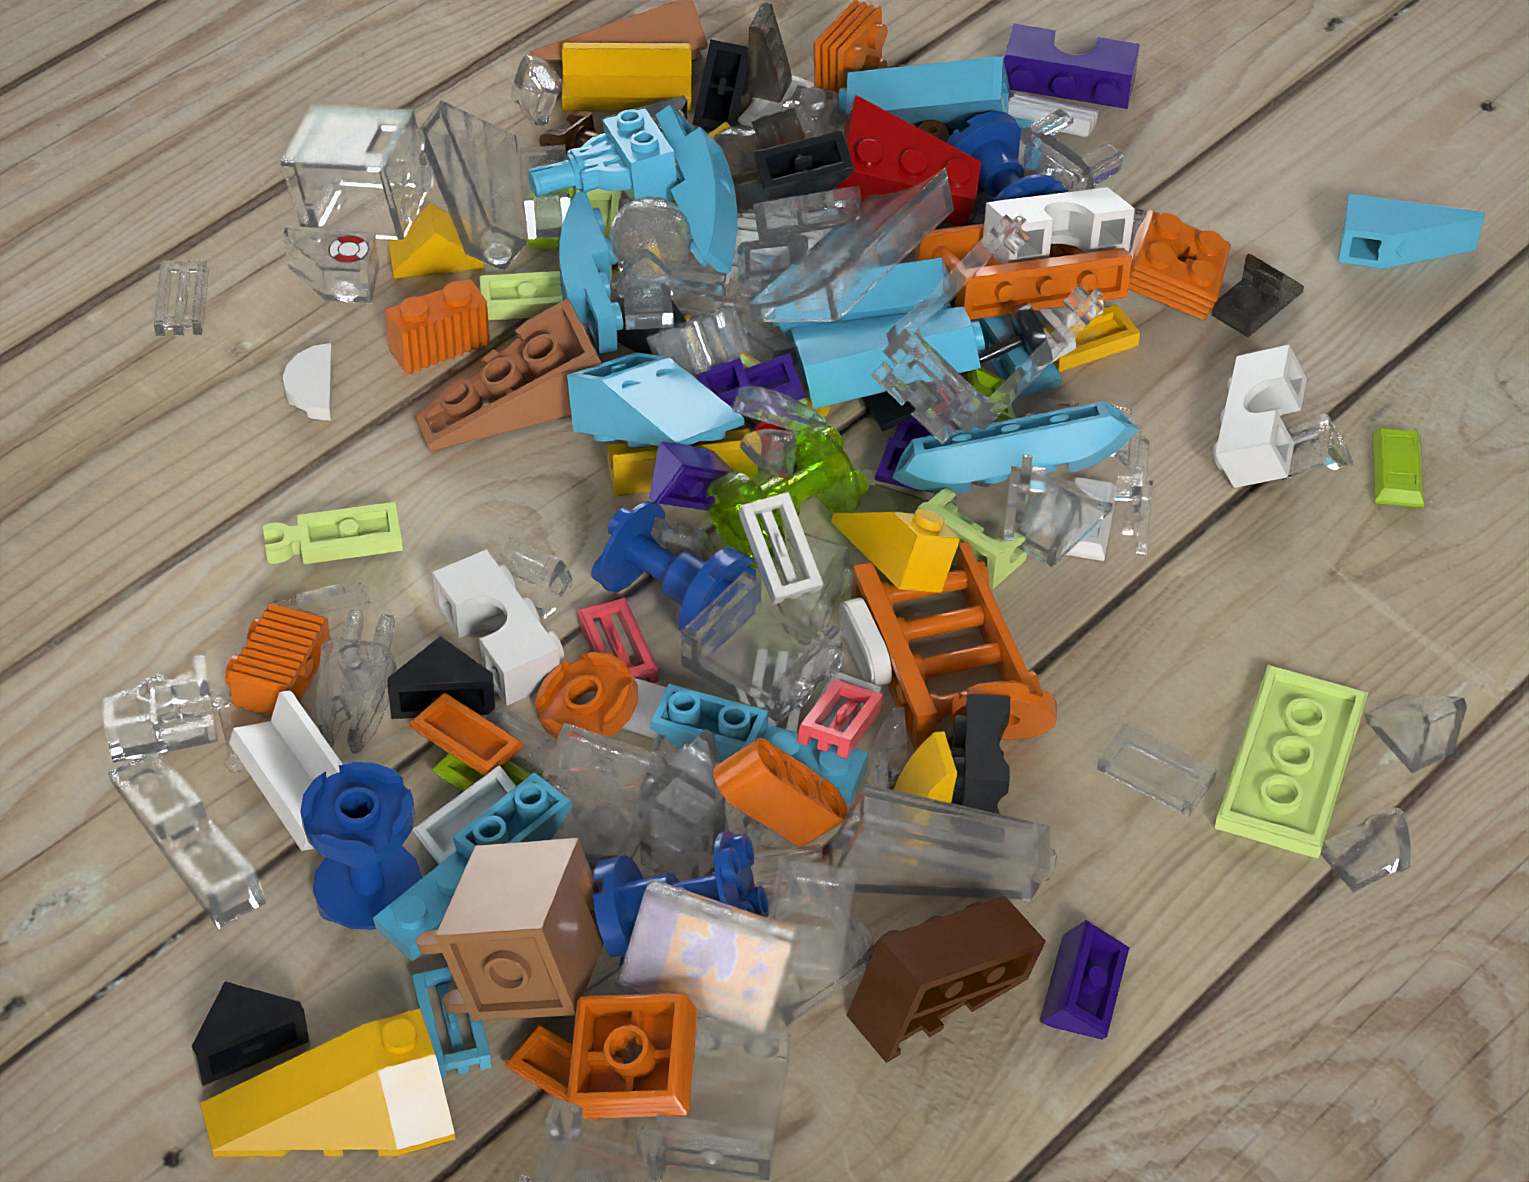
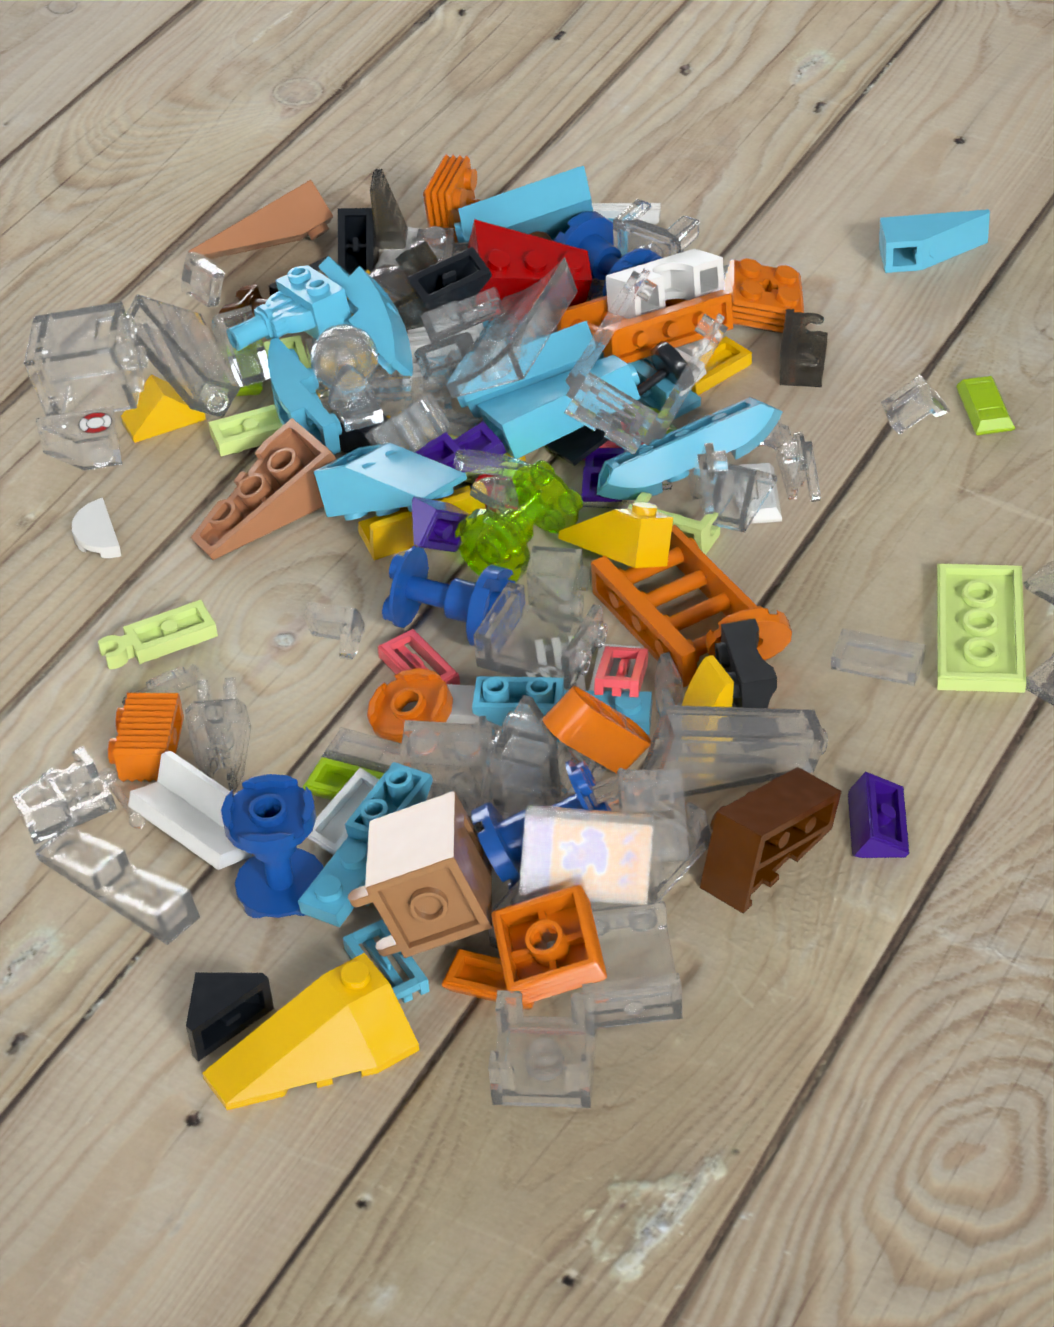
camera: 10 degrees left, 5 degrees down
(437, 326) = (187, 465): orange brick -> none
(440, 670) = (289, 722): black slope -> none
(466, 735) = (322, 754): orange tile -> none
(483, 596) = (338, 680): white arch -> none
(624, 75) = (269, 252): yellow panel -> none
(681, 540) = (435, 570): clear tile -> none
(793, 588) = (549, 586): white tile -> none
(865, 642) = (622, 619): white tile -> none
(1095, 77) = (648, 179): dark purple arch -> none
(1201, 344) = (802, 350): none -> clear smoke hinge
(1252, 436) = (867, 401): white arch -> none
(1256, 297) = (837, 303): clear smoke slope -> none

